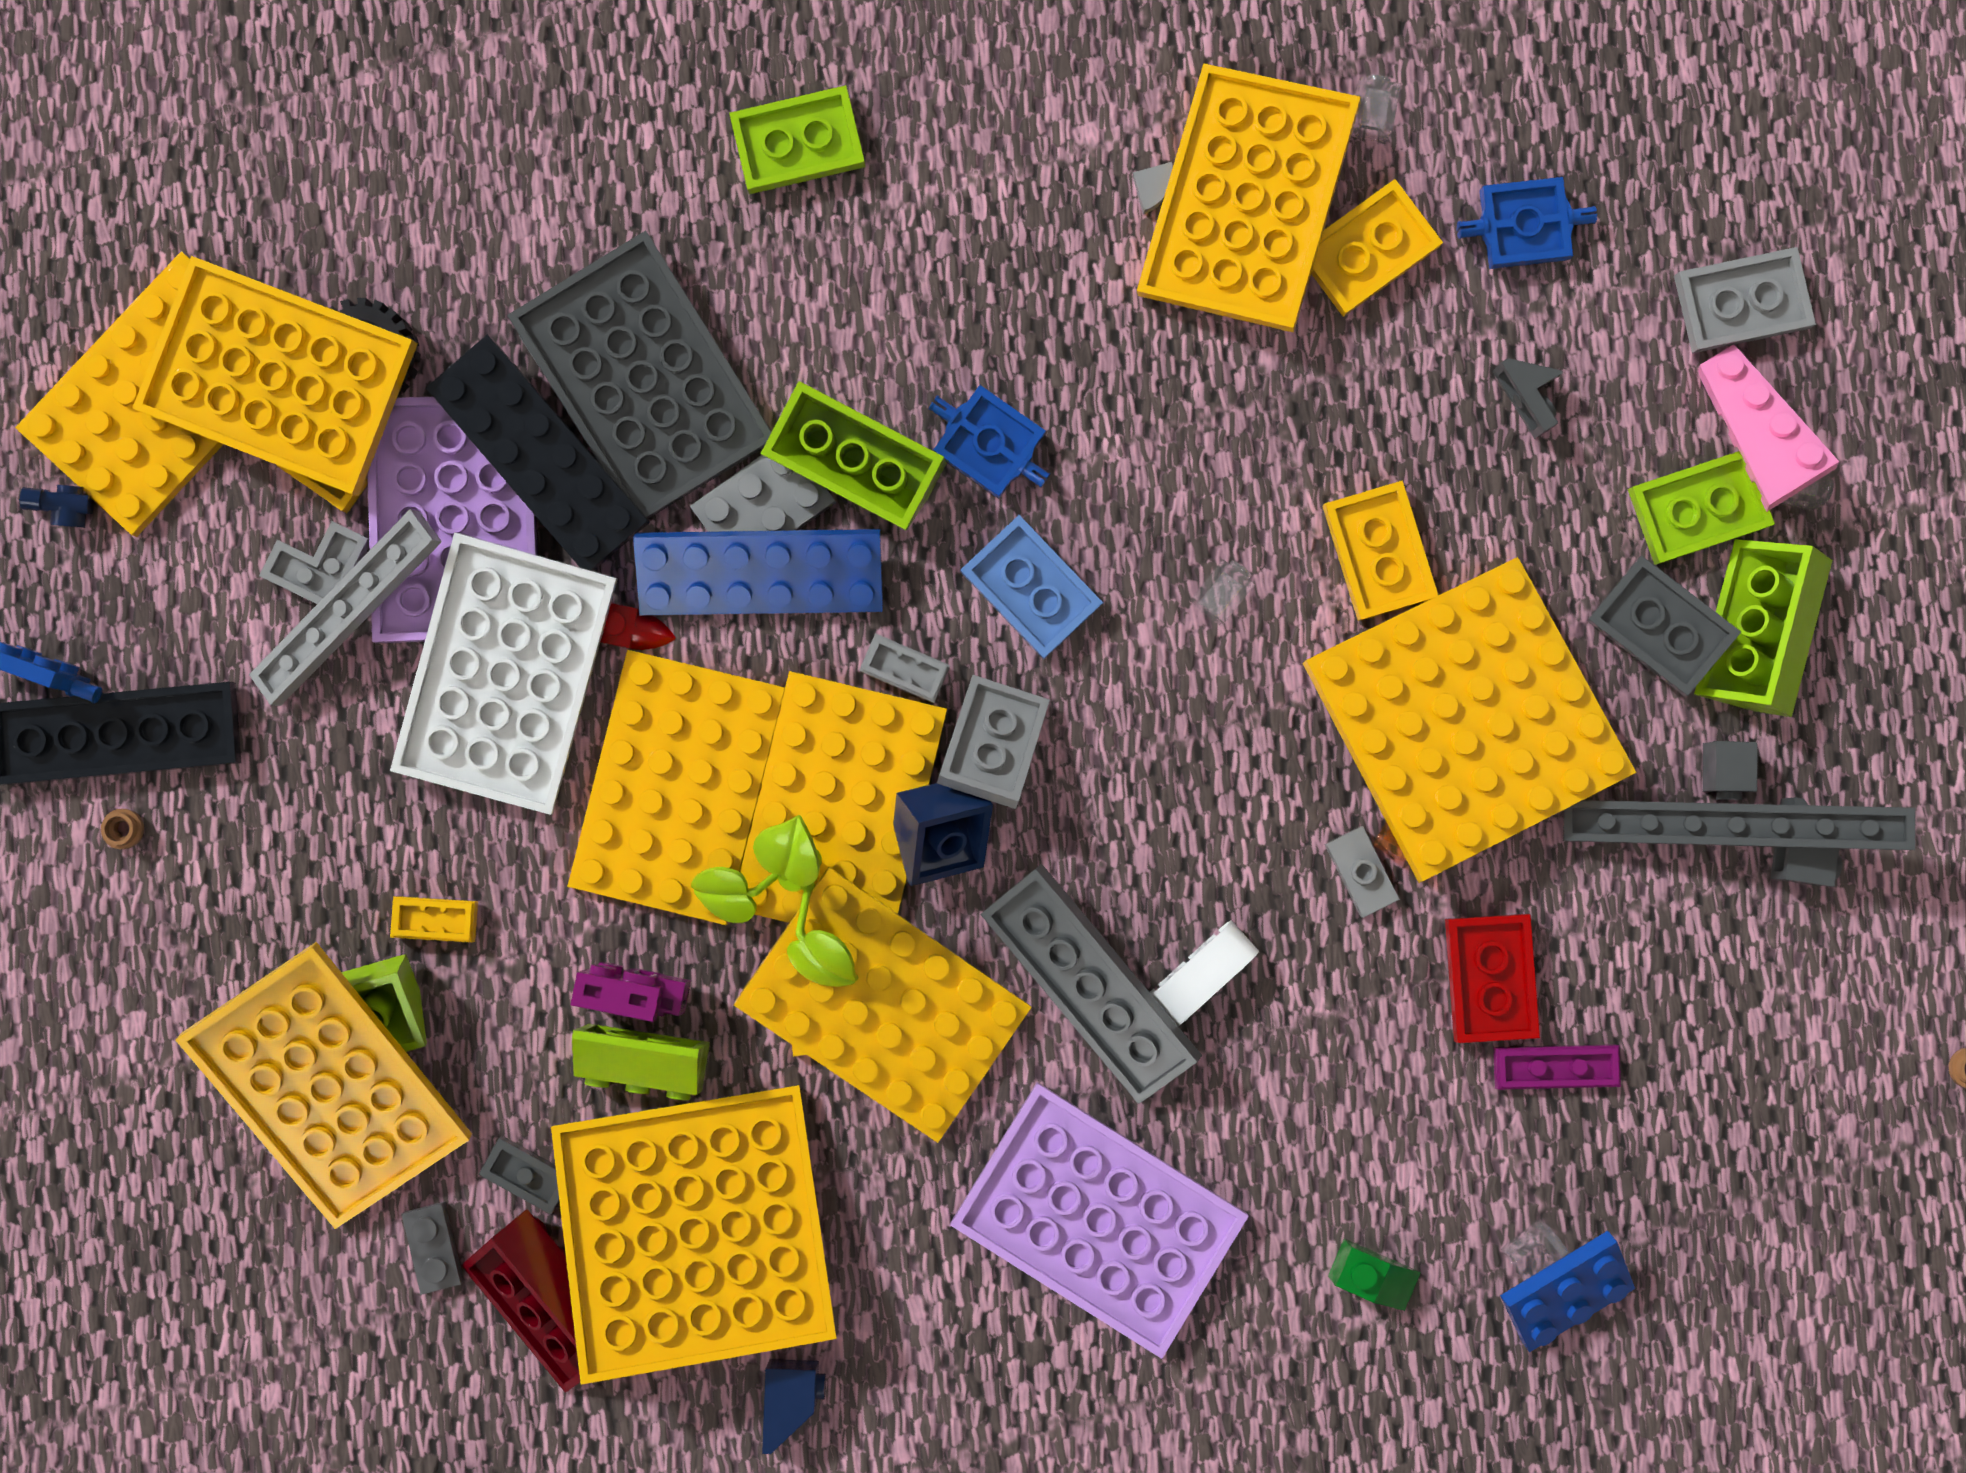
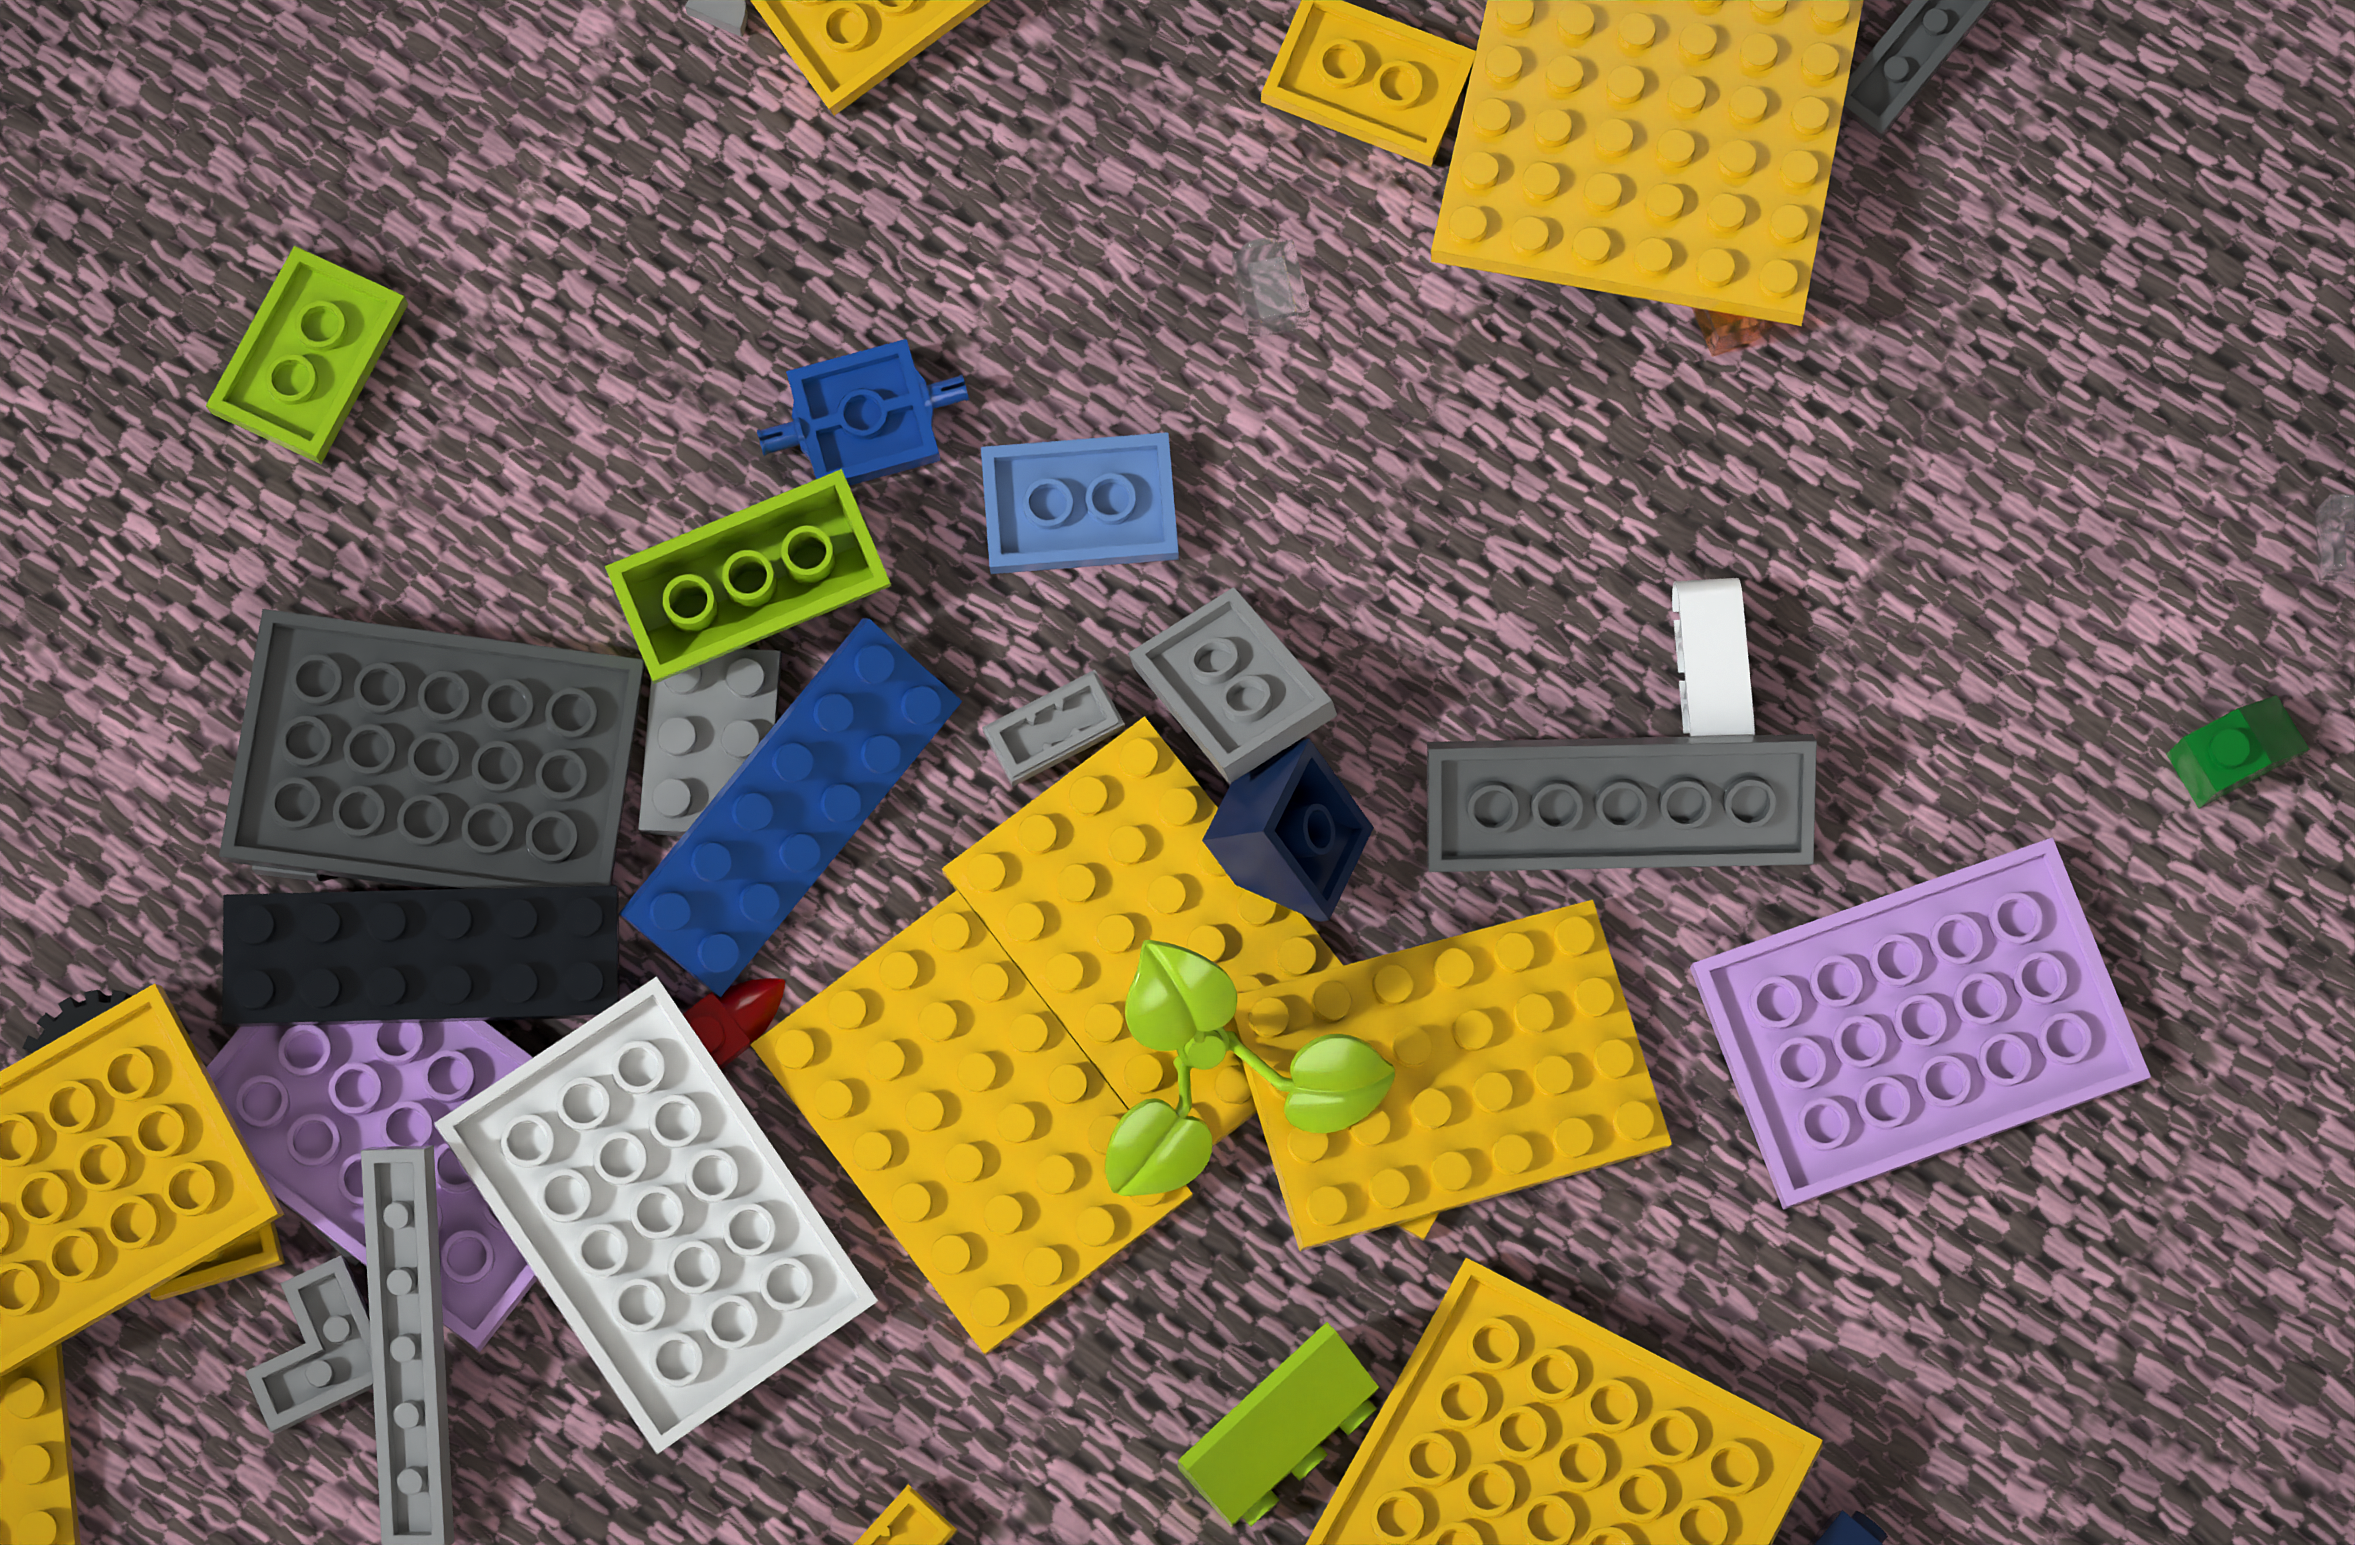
camera: 55 degrees left, 10 degrees down
(630, 994) = (1187, 1365): magenta piece -> none
(1362, 871) = (1735, 391): light grey plate -> none
(1492, 978) = (1981, 339): red plate -> none
(1557, 1066) = (2146, 350): magenta tile -> none

